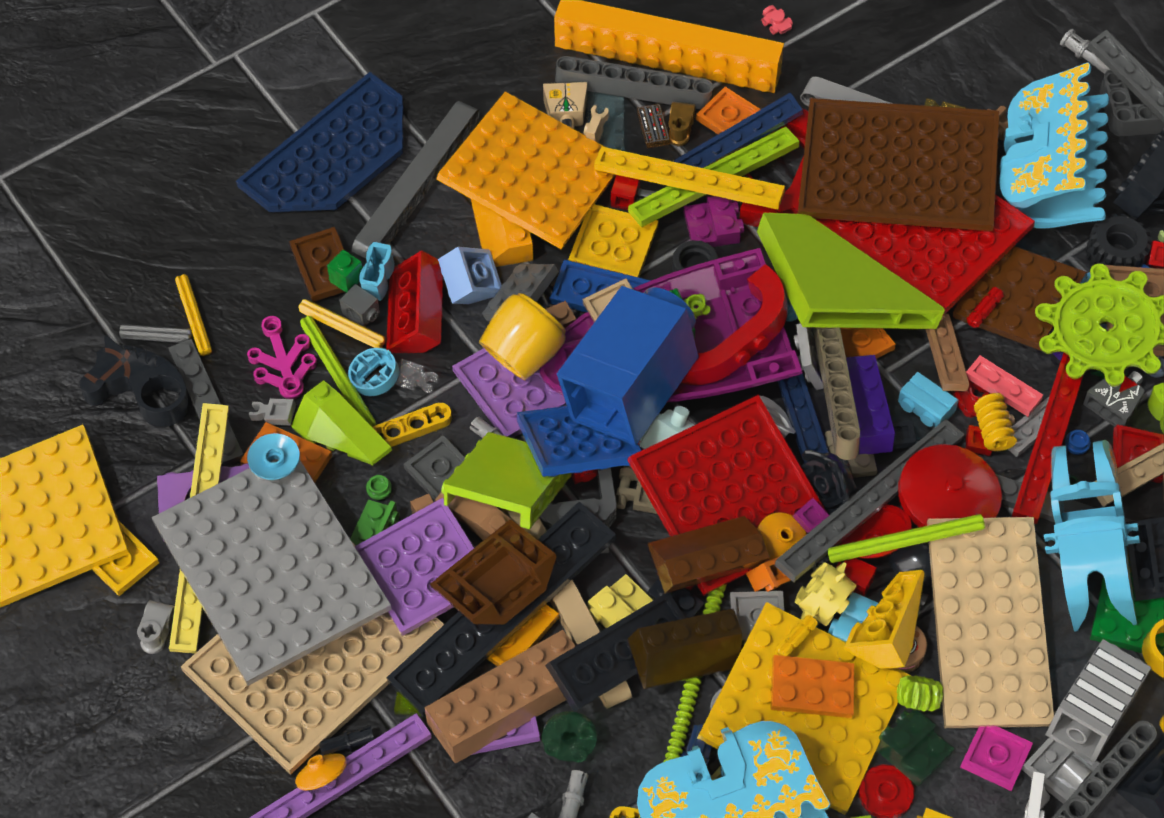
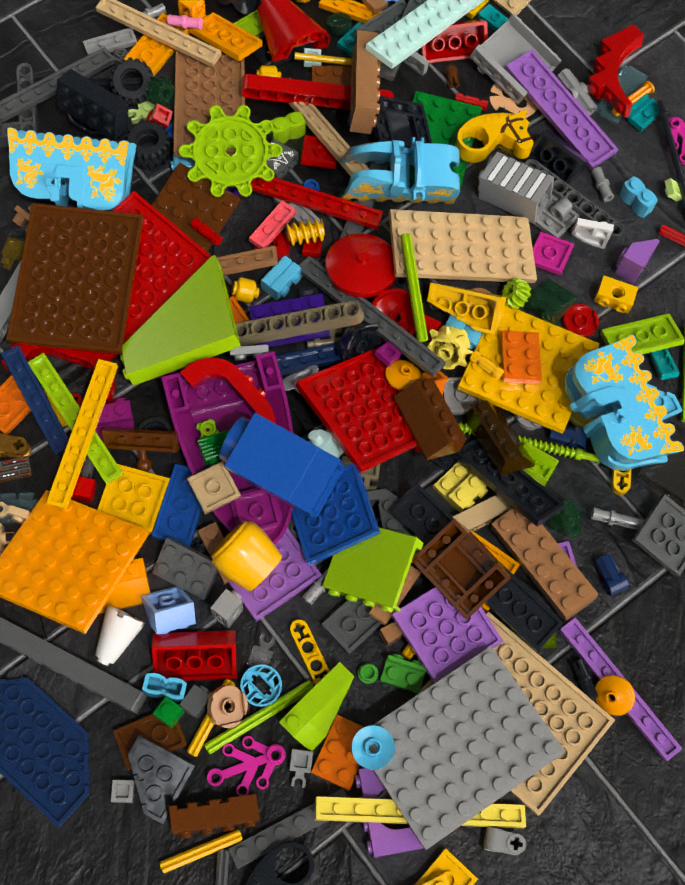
camera: 100 degrees left, 10 degrees up
(227, 319) = (214, 815): none -> reddish brown wedge
(267, 239) = (122, 791): none -> light grey plate
(278, 267) = (157, 776): none -> black plate
(338, 325) = (216, 704): none -> plate
(446, 225) = (116, 634): none -> white cone
(464, 330) = (227, 608): none -> light grey brick
(481, 791) = (613, 580): none -> dark blue piece
(650, 705) = (543, 466): none -> lime bracket
(678, 248) = (142, 441): none -> reddish brown plate
(905, 358) = (244, 290): none -> yellow head

